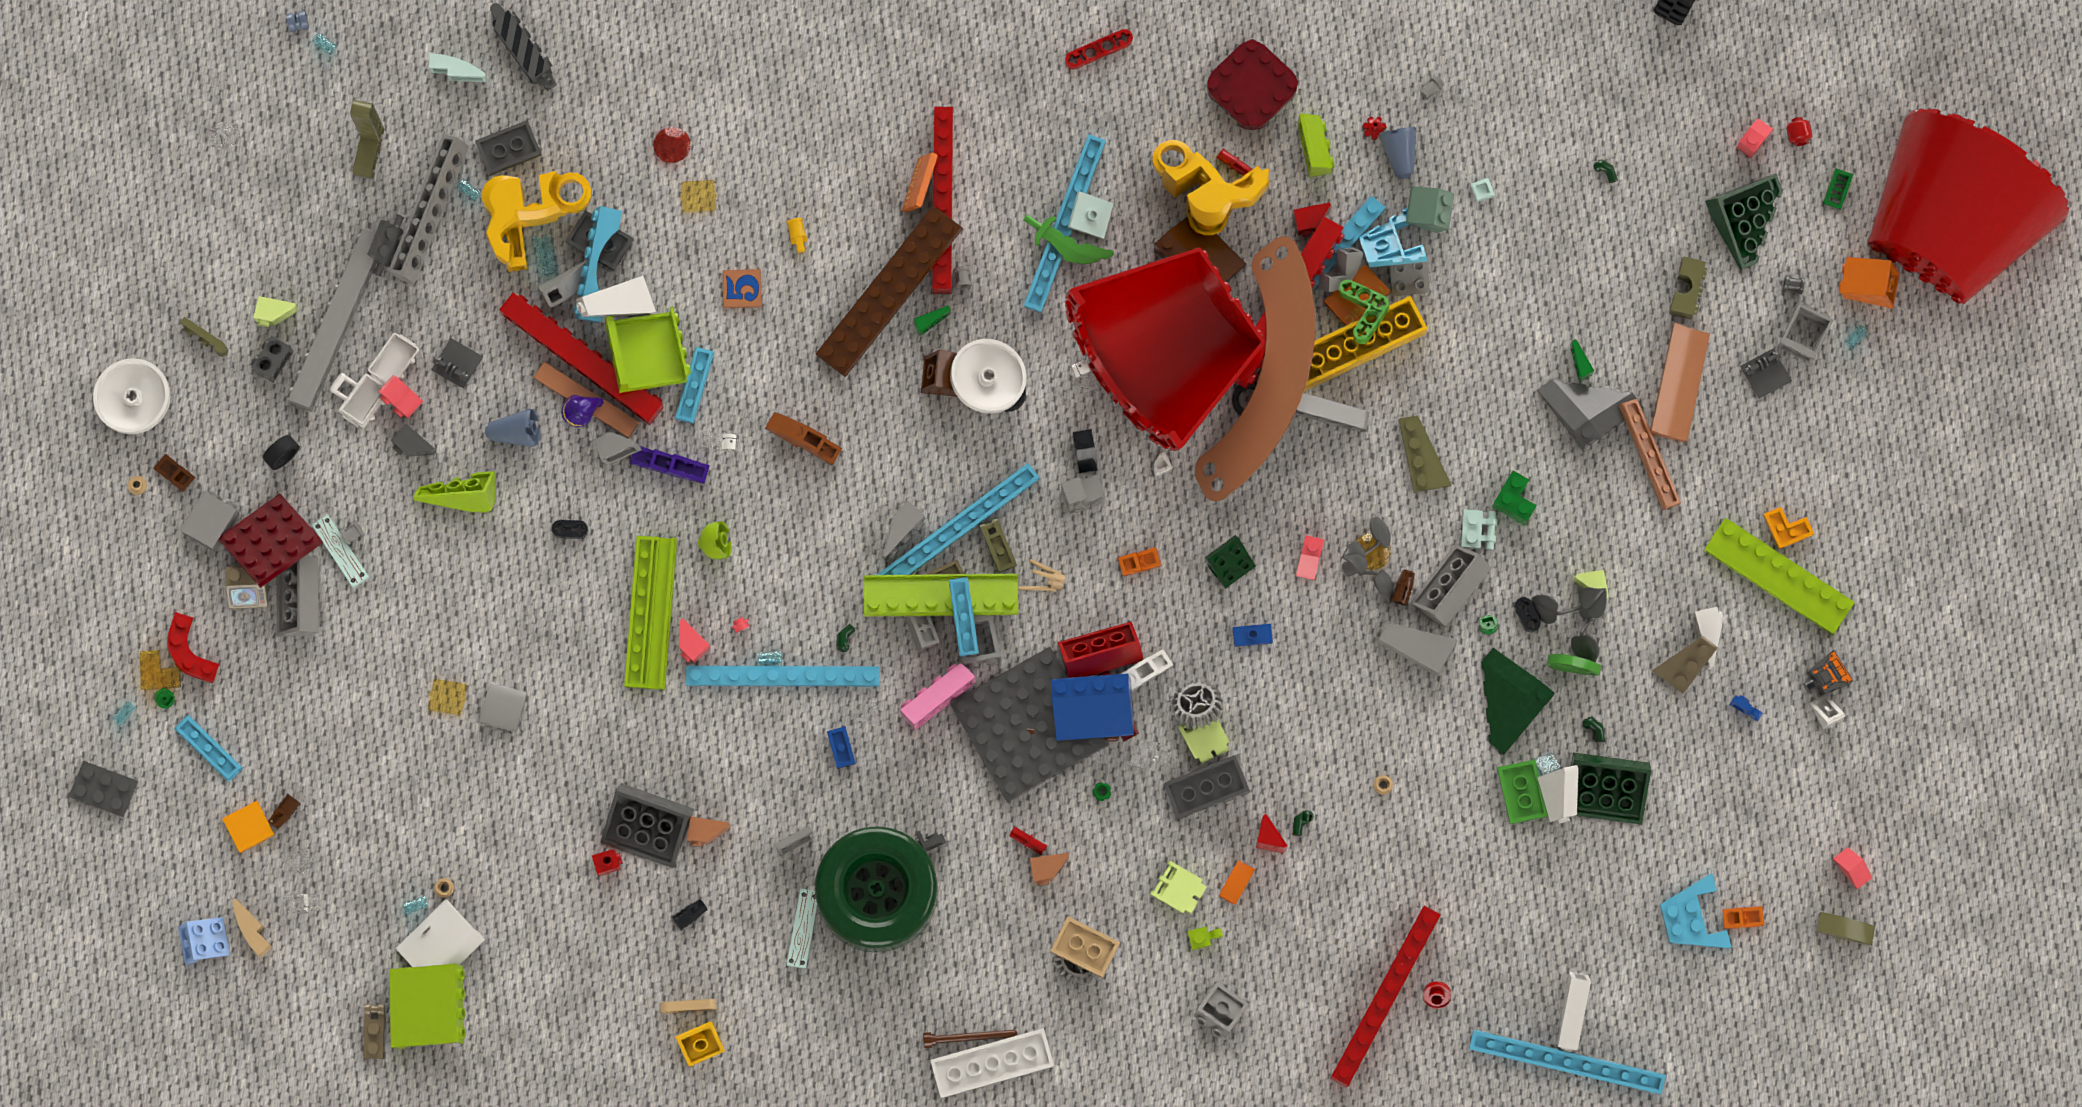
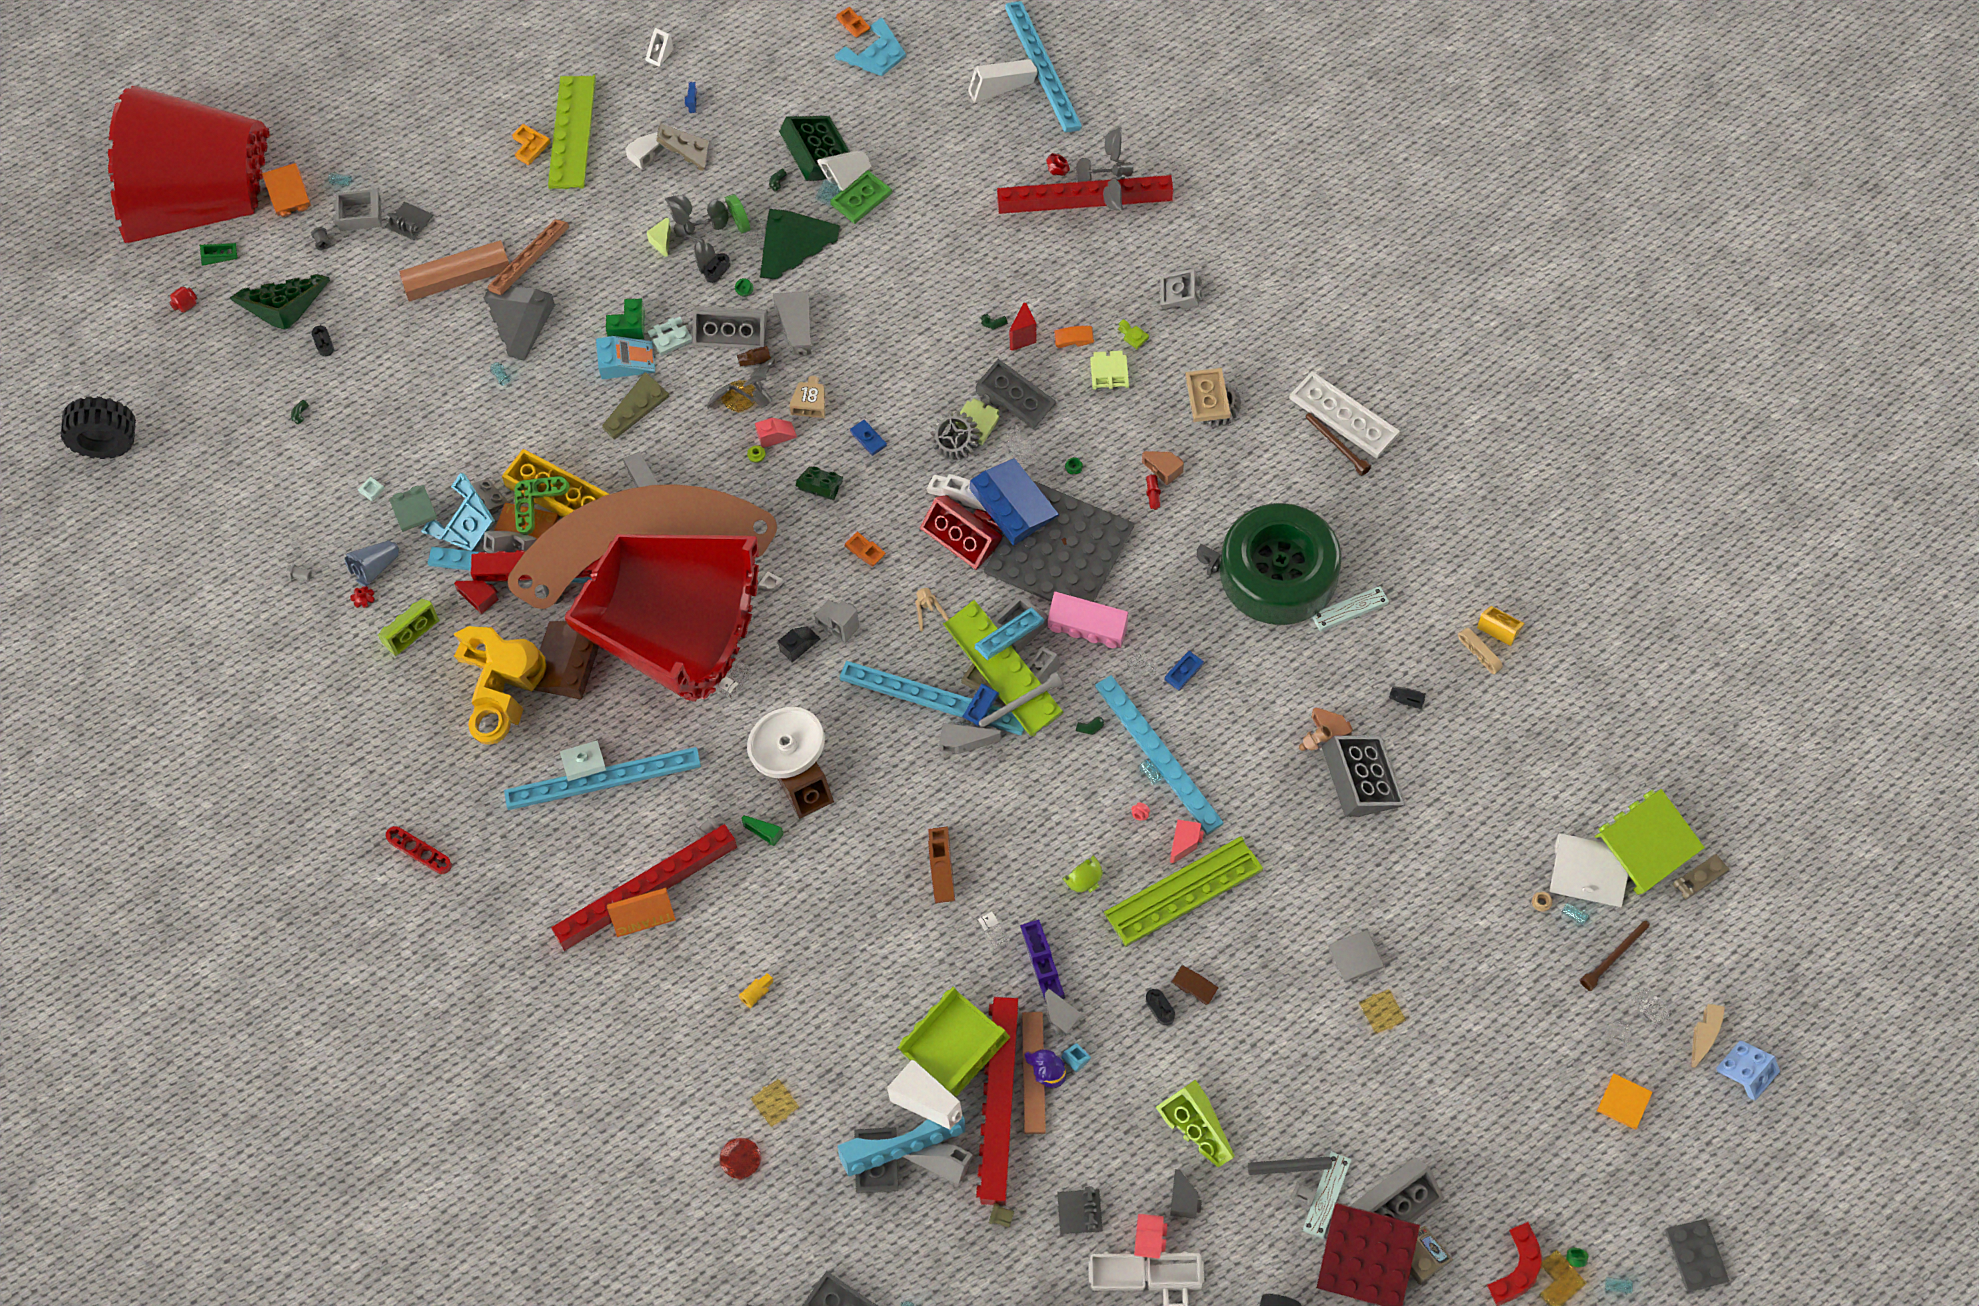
camera: 120 degrees left, 15 degrees down
(208, 748) = (1587, 1187): medium azure tile -> none
(284, 811) = (1587, 1078): reddish brown hinge -> none
(355, 875) = (1590, 980): none -> reddish brown piece
(379, 537) = (1290, 1165): none -> dark grey axle
(492, 303) = (1001, 1216): none -> olive bush
(506, 204) = (899, 1260): yellow animal -> none
(515, 429) = (1106, 1111): sand blue cone -> none
(545, 255) = (924, 1200): clear light blue hinge -> none
(568, 566) = (1195, 984): none -> reddish brown slope
(574, 437) = (1076, 1057): none -> medium azure brick
(607, 862) = (1418, 785): red brick -> none
(695, 385) = (965, 985): medium azure tile -> none
(700, 807) = (1311, 741): none -> medium nougat piece
(742, 288) = (838, 1006): nougat tile -> none
(794, 840) = (1288, 650): light grey tile -> none
(889, 291) = (760, 873): reddish brown plate -> none
(890, 619) = (1053, 682): none -> light grey piece
(919, 555) = (980, 704): none -> blue plate
(998, 546) = (926, 658): olive plate -> none
(1066, 245) = (623, 761): bright green sword -> none
(1233, 162) = (461, 681): red axle -> none
(1252, 85) = (379, 706): dark red plate -> none
(1299, 535) = (758, 457): none -> lime plate
(1325, 607) = (809, 399): none -> tan torso
(1383, 778) = (923, 282): tan plate -> none
(1383, 1037) = (1121, 169): none -> dark grey plant
(1478, 476) = (624, 357): none -> medium azure slope
(1534, 360) = (498, 370): none -> clear light blue pin
(1581, 363) = (482, 338): green slope -> none
(1675, 224) = (319, 341): none -> black beam
(1692, 272) = (355, 304): olive arch -> none
(1754, 138) = (207, 326): coral slope -> none
(1828, 675) = (629, 62): torso -> none

